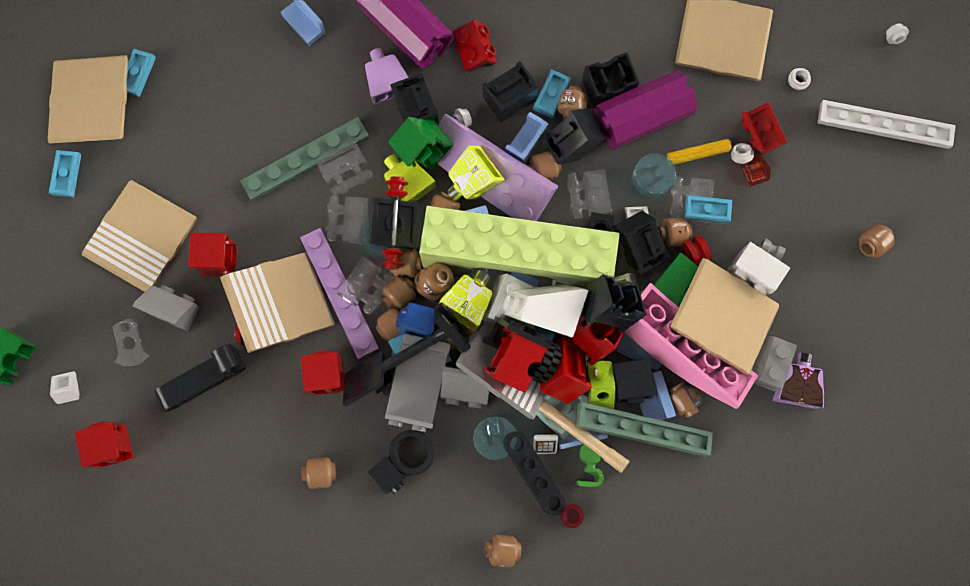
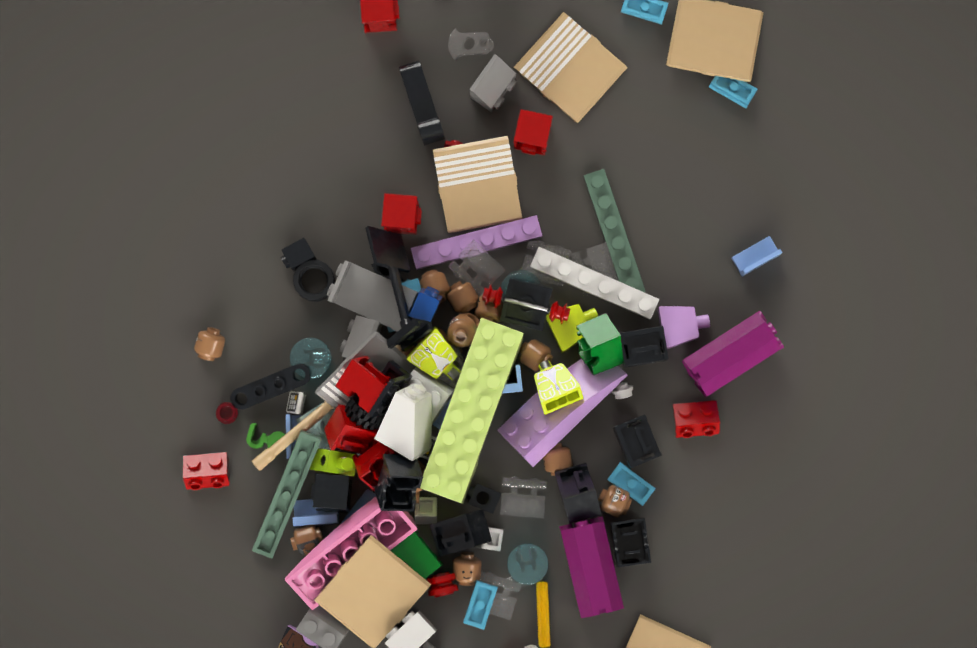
camera: 110 degrees right, 5 degrees up
(319, 472) = (314, 194): medium nougat head -> none
(359, 165) = (594, 283): none -> white plate
(527, 138) = (587, 448): light blue panel -> none
(638, 524) = (205, 471): none -> bracket

